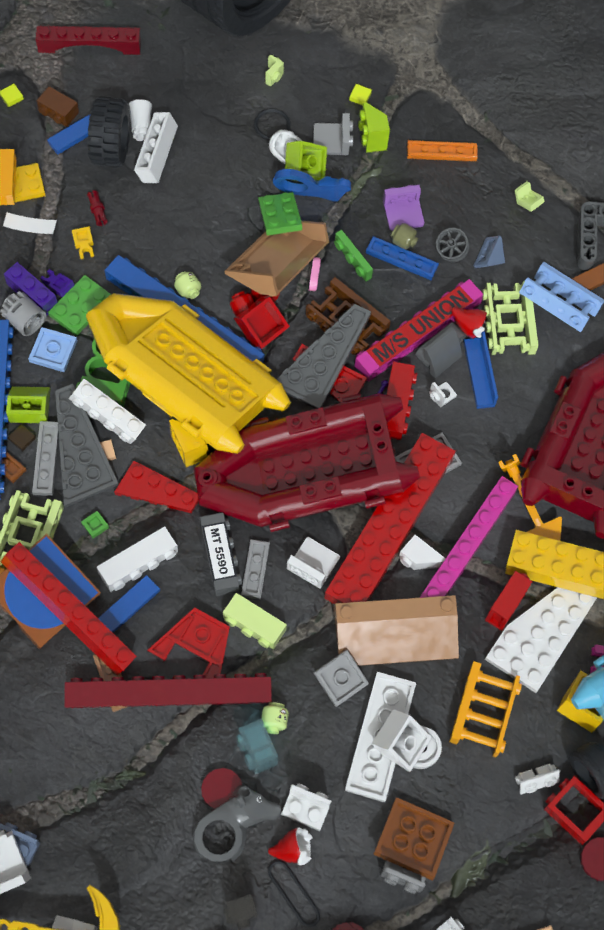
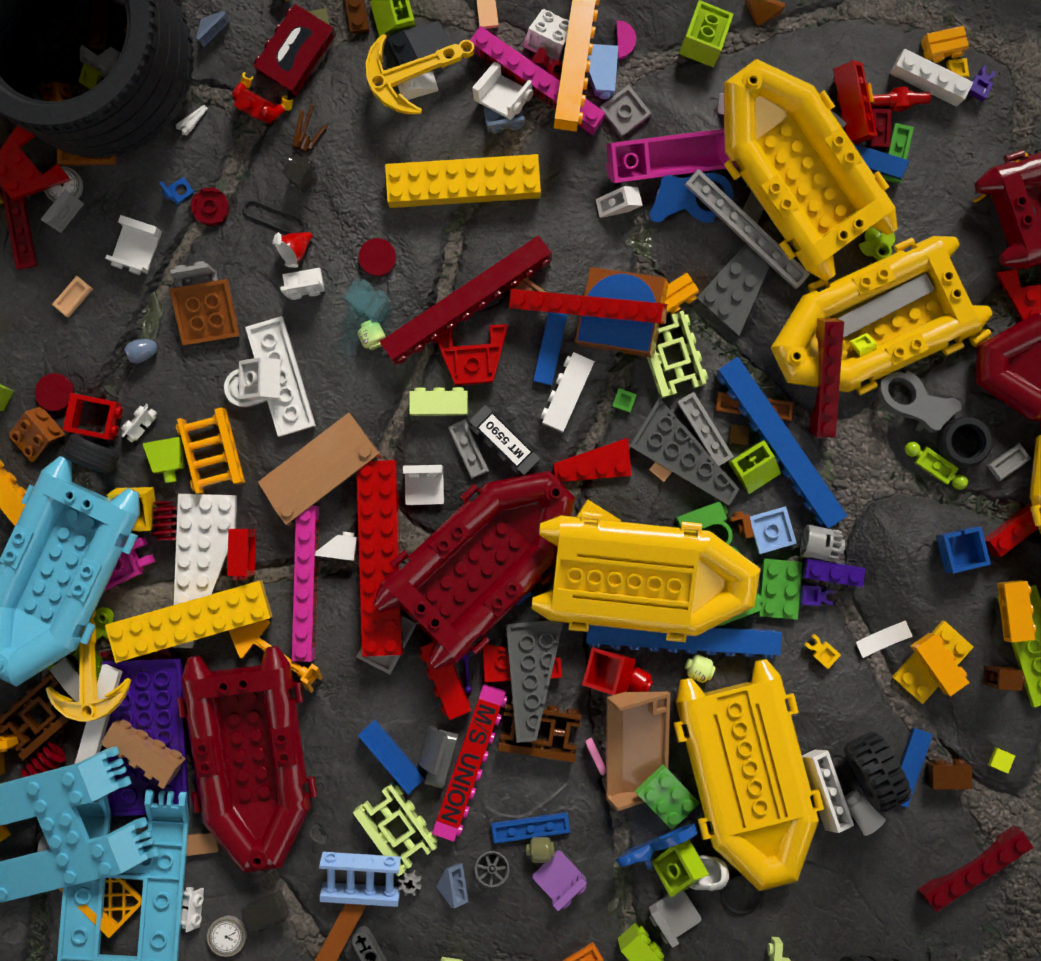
camera: 150 degrees right, 20 degrees up
(71, 367) = (744, 526): none -> dark orange bracket
(96, 805) = (463, 181): none -> yellow brick
(97, 208) = (835, 694): dark red pin -> none
(107, 411) = (681, 498): white brick -> none
(203, 192) = (750, 775): none -> yellow piece
(240, 812) = (351, 250): dark grey animal -> none
(341, 678) = (340, 401): light grey tile -> none
(353, 256) = (575, 798): bright green plate -> none
(438, 396) = (412, 705): white bracket -> none
(470, 321) = (426, 797): red hat -> none
(497, 843) = (140, 350): none -> sand blue animal
(523, 272) = (415, 885): none -> light grey gear
(529, 730) = (166, 457): none -> lime torso
(561, 672) = (164, 520): none -> dark red piece

